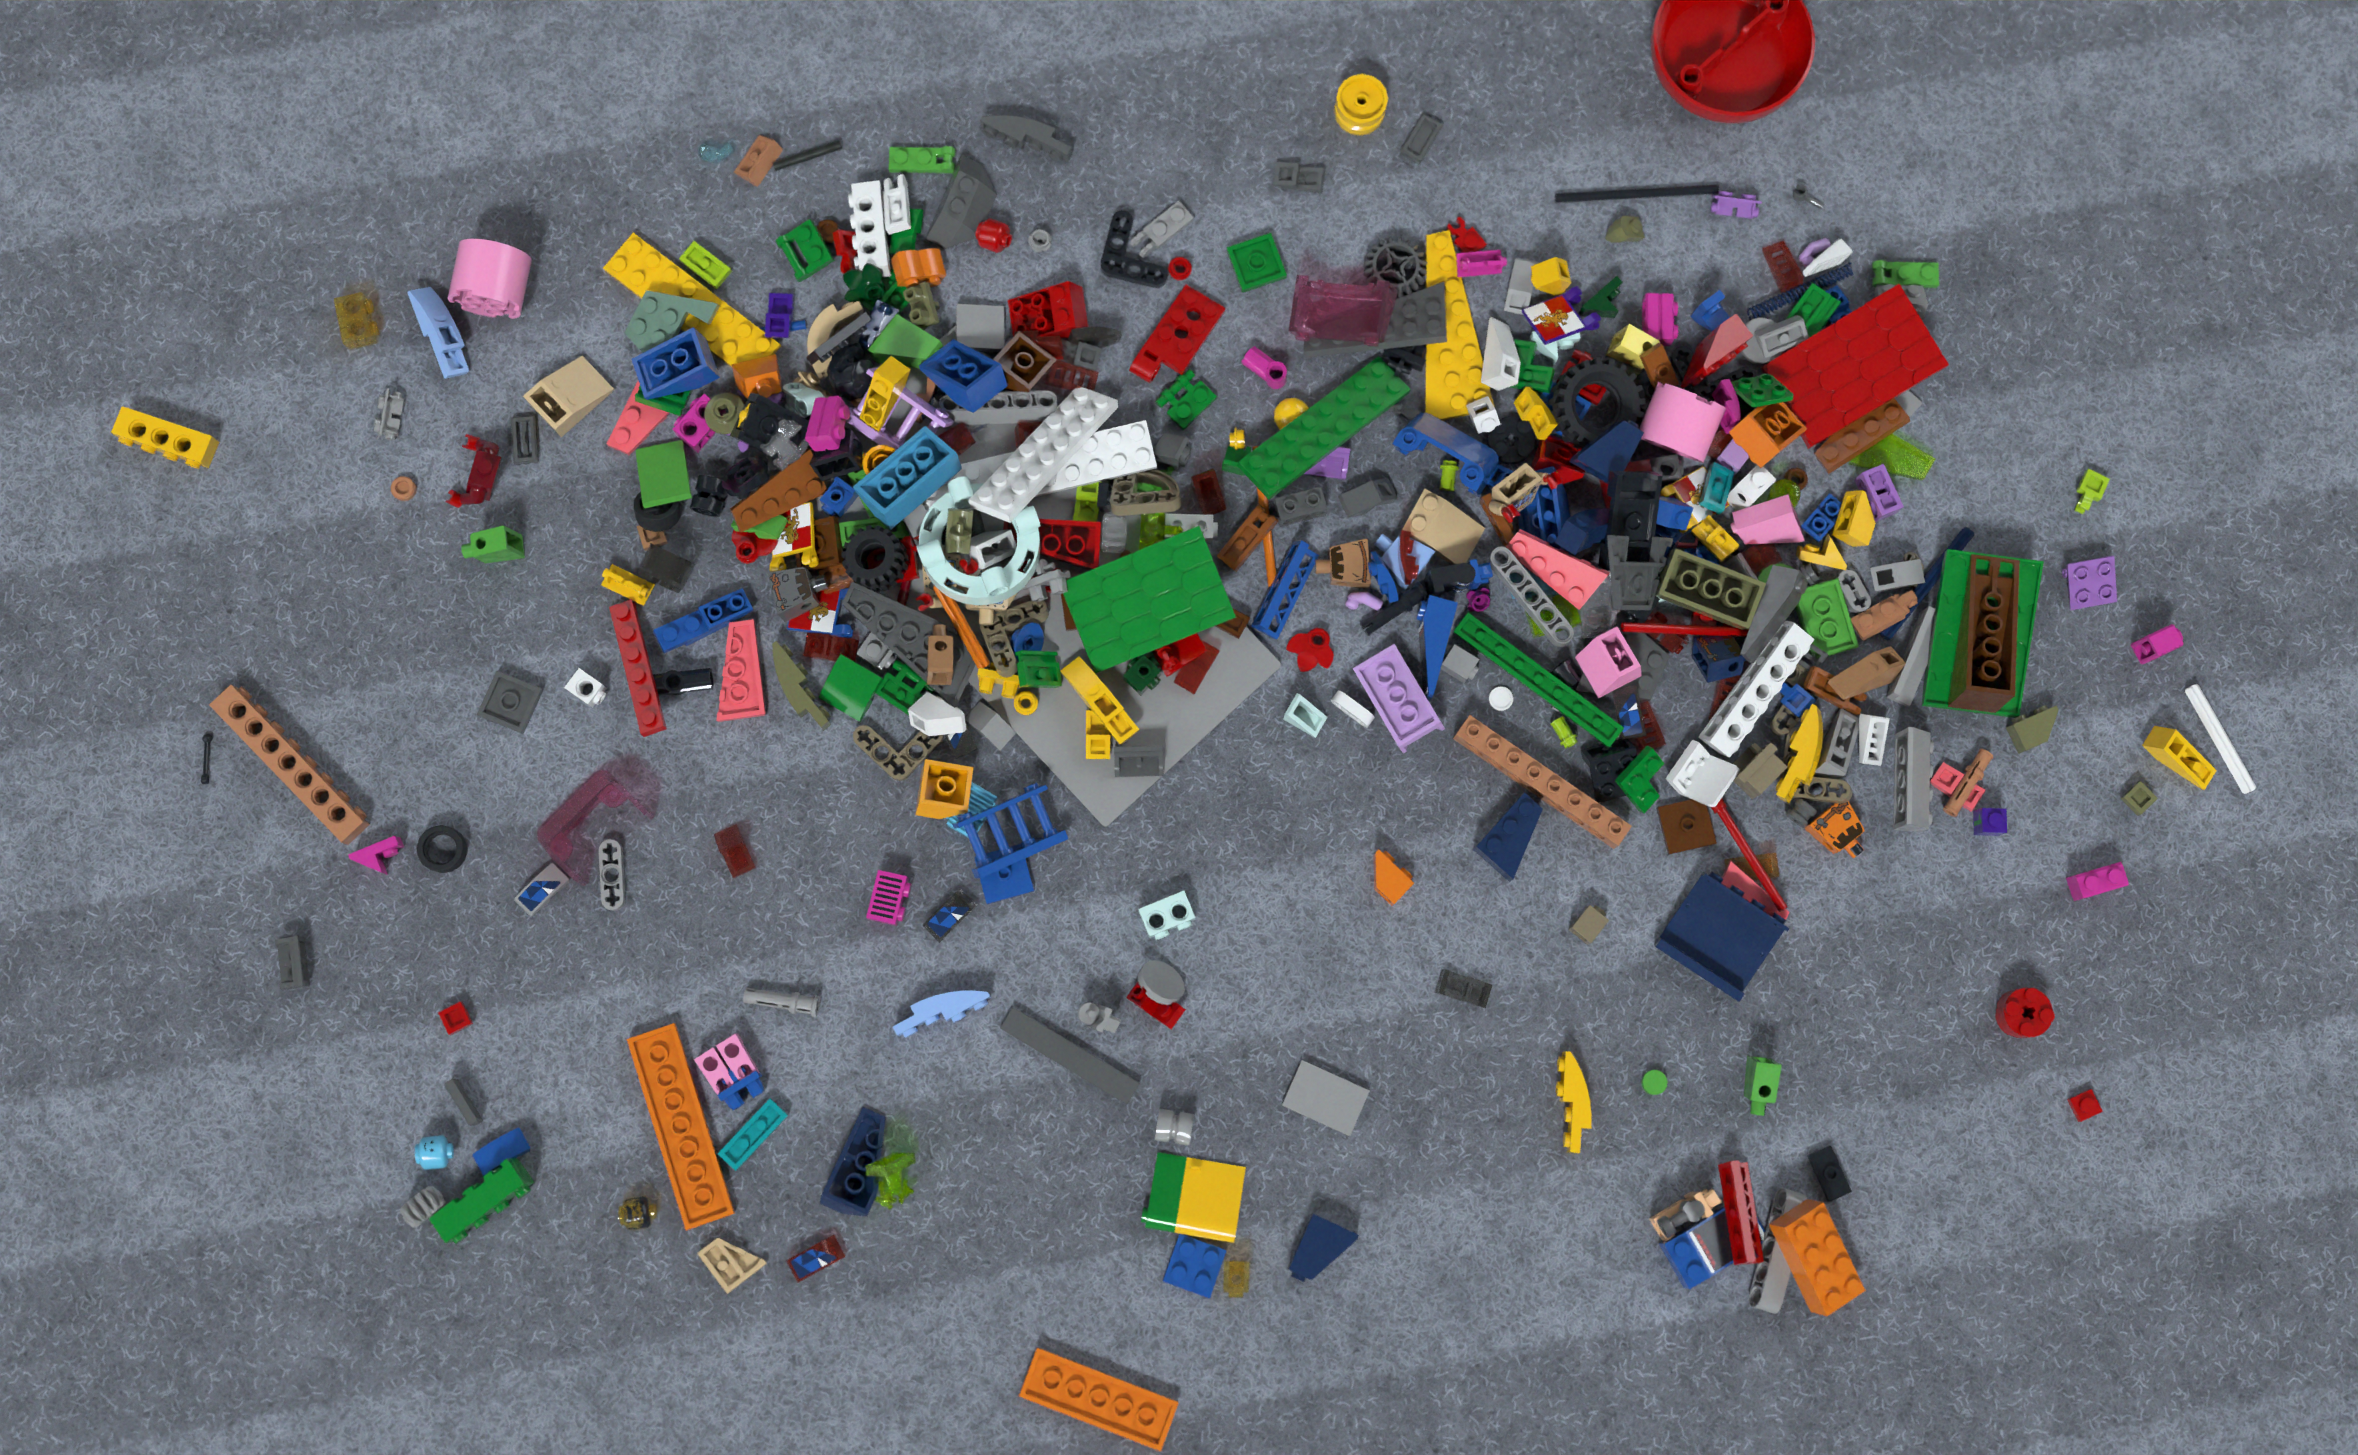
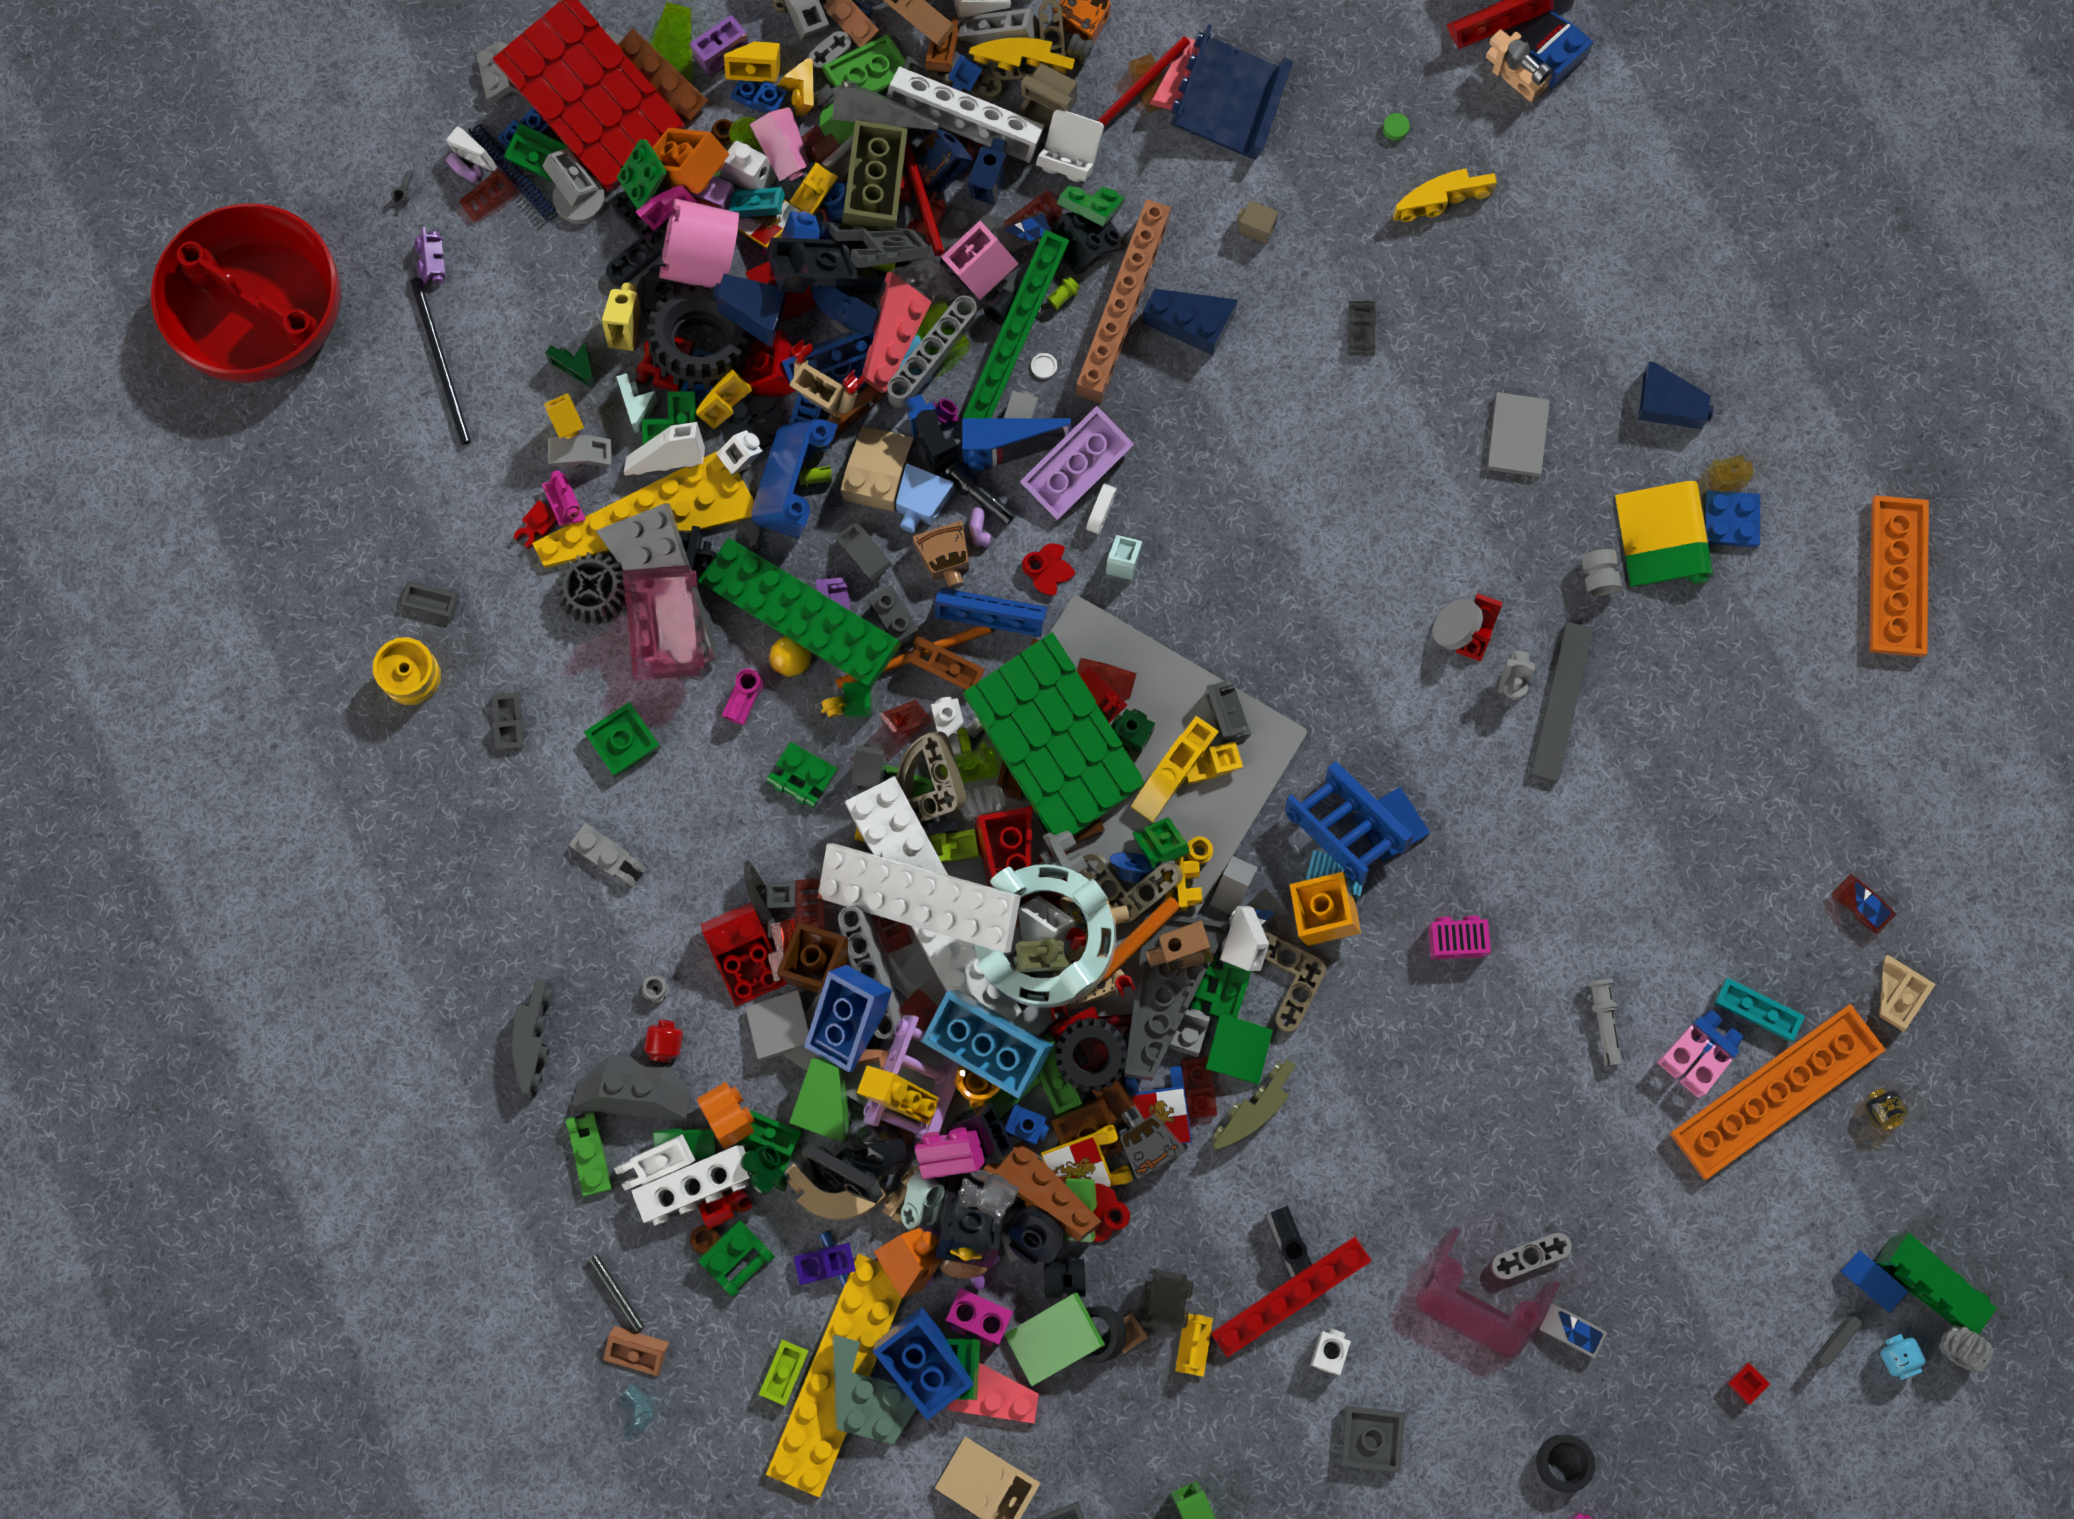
camera: 100 degrees left, 5 degrees down
(704, 621) = (1212, 1240): blue slope -> none
(725, 423) = (951, 1296): olive piece -> none
(734, 851) = (1459, 1126): clear red slope -> none
(742, 680) = (1265, 1176): coral wing -> none
(848, 1186) = (1760, 886): dark blue wedge -> none
(881, 316) = (795, 1139): dark blue hinge -> none
(891, 1169) = (1754, 847): clear neon green piece -> none
(923, 307) = (771, 1096): olive hips -> none
(949, 915) = (1456, 868): slope -> none
(950, 1004) = (1551, 840): light blue slope -> none
(1118, 256) = (650, 894): black beam -> none
(1164, 909) = (1376, 644): light aqua brick -> none
(1166, 347) = (746, 814): red hinge -> none
(1180, 261) = (649, 814): red plate -> none
(1383, 577) = (953, 506): blue slope -> none
(1389, 879) = (1273, 426): orange slope -> none
(1407, 565) = (935, 483): clear red slope -> none
(1557, 317) = (609, 404): flag -> none
(1625, 230) = (487, 361): olive plate -> none
(1658, 317) = (580, 303): dark pink brick -> none
(1658, 366) = (642, 283): dark orange plate -> none
(1672, 462) = (745, 249): dark grey brick -> none
(1685, 826) = (1125, 156): reddish brown plate -> none
(1687, 688) = (989, 172): none -> dark blue torso
(1710, 312) = (562, 250): blue slope -> none
(1717, 349) = (607, 232): red slope -> none
(1760, 1073) = (1364, 24): bright green torso -> none
(1906, 273) = (467, 73): bright green plate -> none

